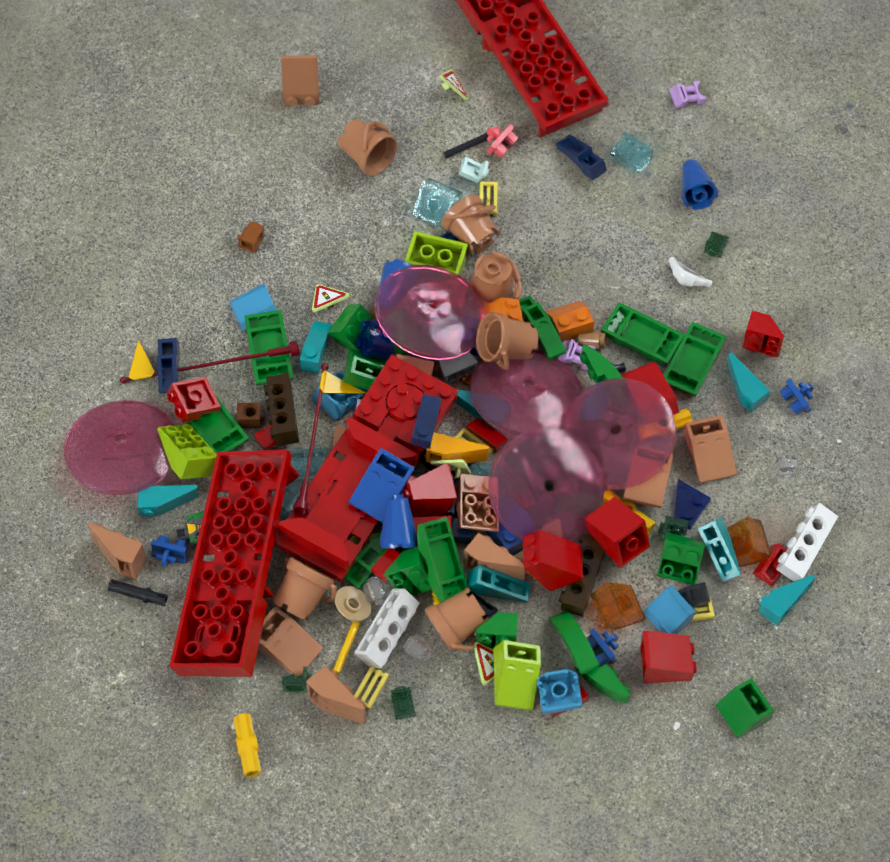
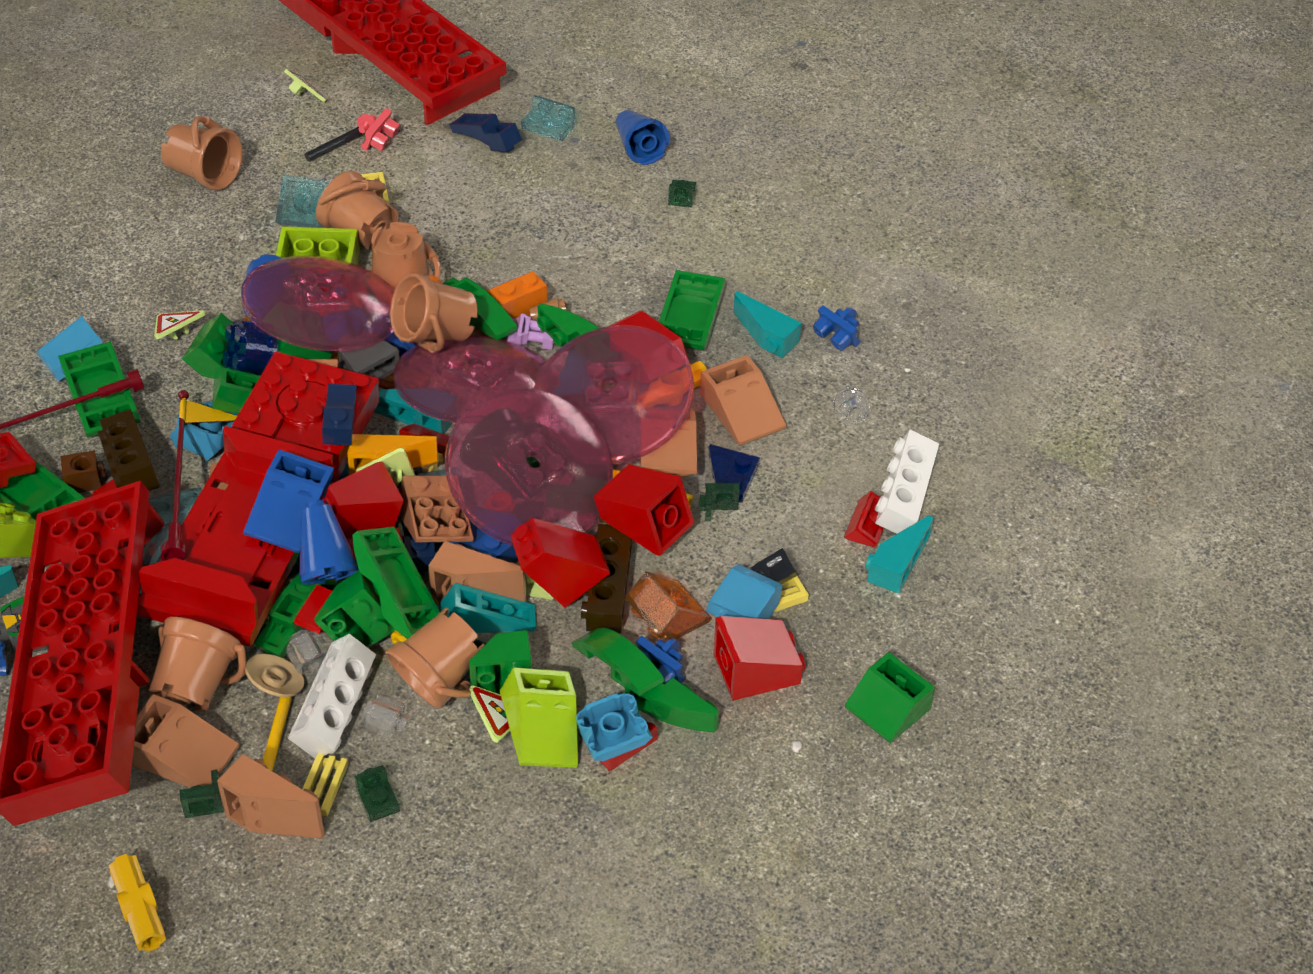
camera: 15 degrees left, 15 degrees down
(251, 237) = (58, 275): dark orange brick -> none
(300, 80) = (100, 99): nougat slope -> none
(315, 347) = (165, 383): teal slope -> none
(473, 170) = (345, 162): light aqua bracket -> none
(642, 334) = (612, 294): green slope -> none
(680, 96) = (596, 59): lavender piece -> none
(681, 558) = (740, 534): green slope -> none
(686, 276) = (655, 228): white piece -> none
(720, 548) = (792, 510): teal slope -> none
(749, 541) = (822, 500): clear orange slope -> none
(763, 335) = (774, 266): red slope -> none

